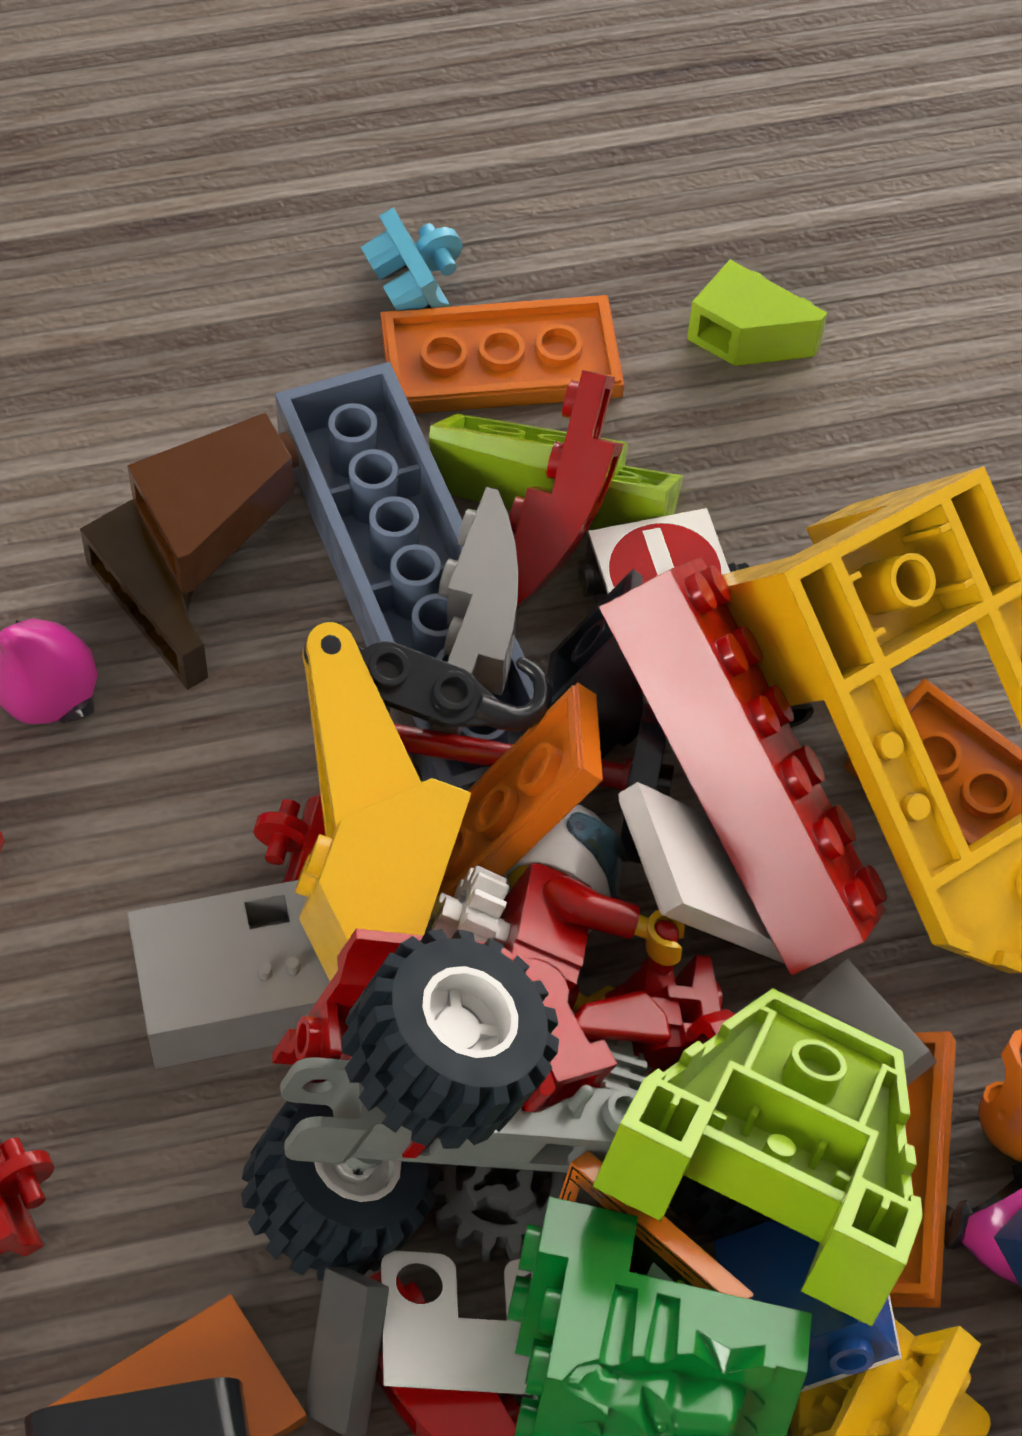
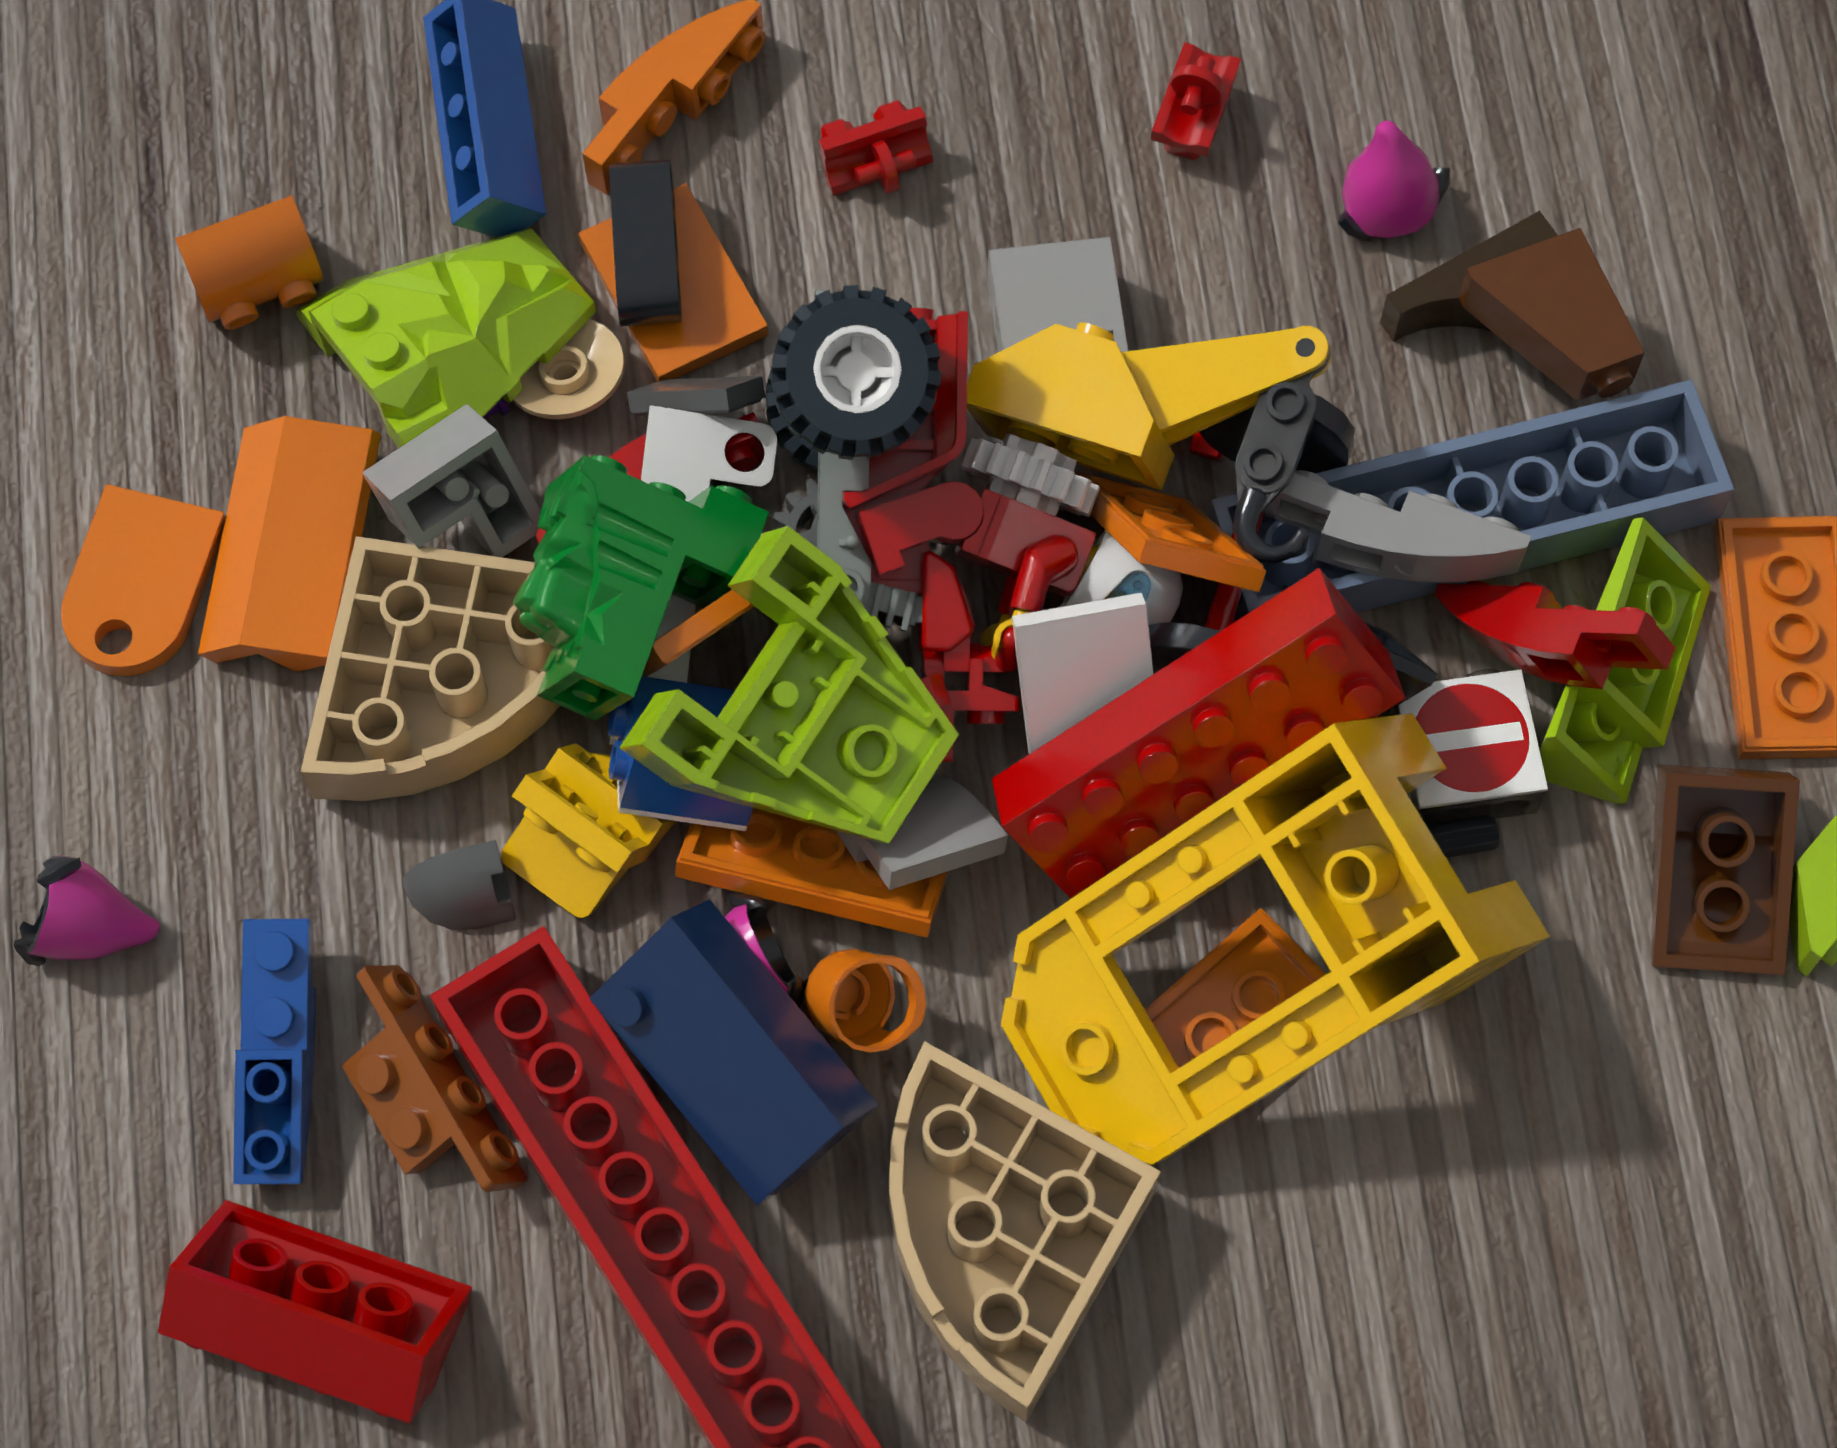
camera: 100 degrees right, 10 degrees up
(736, 393) = (1723, 868): none -> reddish brown slope

